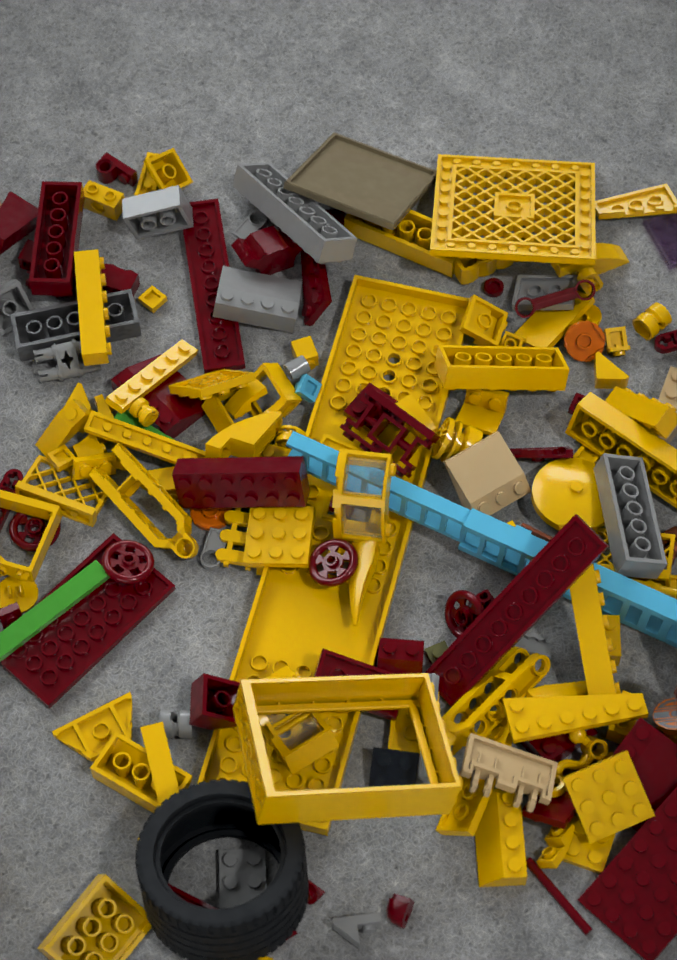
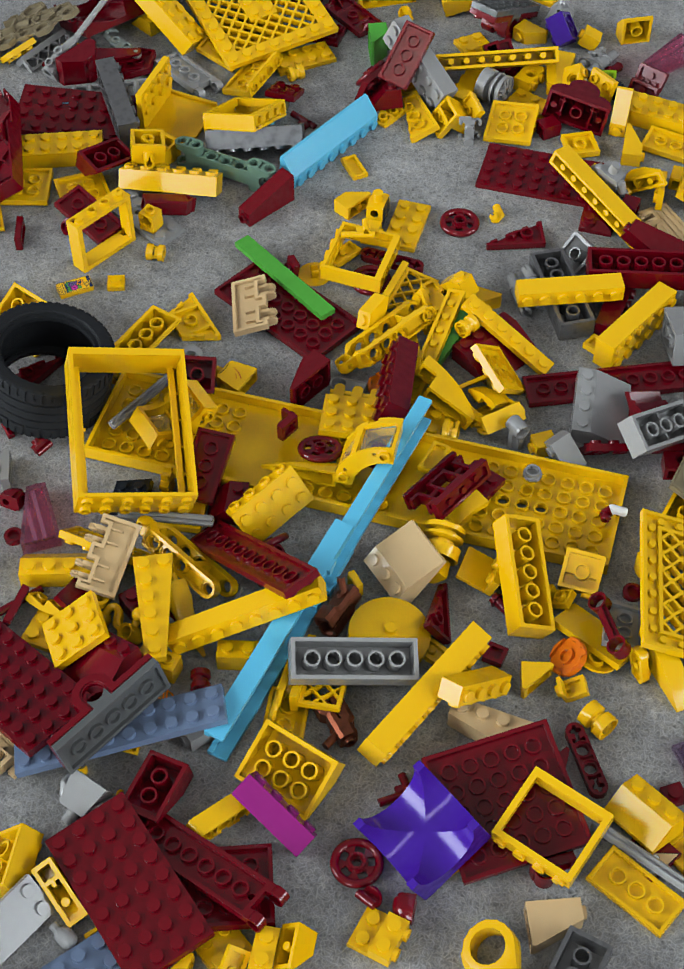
camera: 90 degrees right, 10 degrees down
(22, 832) = (116, 283): none -> yellow plate
(28, 885) = (74, 287): none -> tile
(88, 657) = (251, 305): none -> tan hinge
(108, 515) = (372, 311): none -> yellow slope
(125, 576) = (325, 338): dark red plate -> none
(136, 253) = (633, 327): none -> yellow brick
(160, 761) = (156, 339): yellow tile -> none
(204, 661) = (236, 377): none -> yellow torso
(215, 584) = (311, 378): none -> dark red slope
(235, 752) = (139, 401): none -> light grey axle
(298, 598) = (287, 425): none -> dark red bracket
(307, 388) = (499, 438): medium azure tile -> none
(320, 329) = (564, 448): none -> light grey slope
(359, 358) = (532, 473): none -> light grey plate
(374, 731) = (167, 480): none -> yellow plate
(407, 286) = (606, 513): none -> arm
(414, 612) = (270, 502): none -> yellow bracket
(432, 873) = (38, 523): none -> clear pink slope
(453, 903) = (12, 536): none -> dark red tile
(515, 402) = (497, 601): none -> dark red pin
(562, 879) = (16, 604): none -> dark red tile
(642, 676) = (200, 678): none -> dark red wheel

